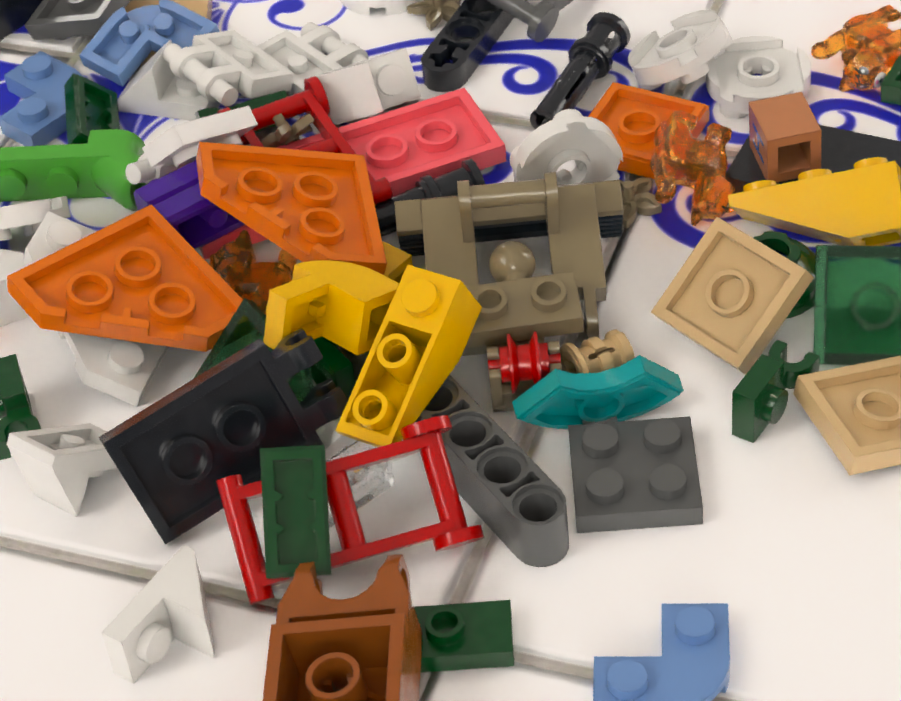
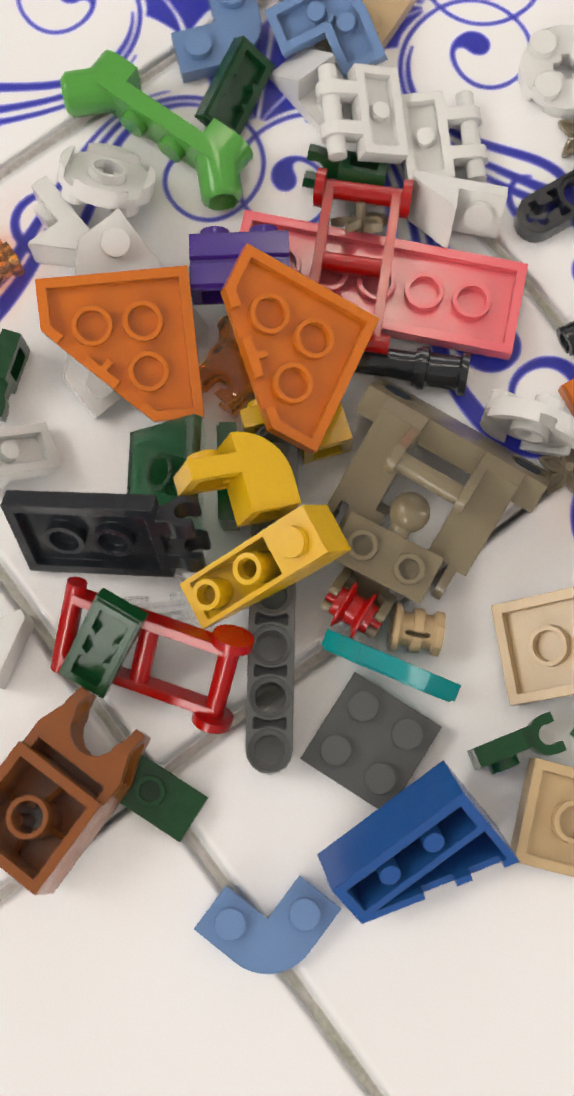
camera: 30 degrees right, 35 degrees up
(180, 143) = (269, 203): white plate -> none
(749, 488) = (413, 845): none -> blue wedge

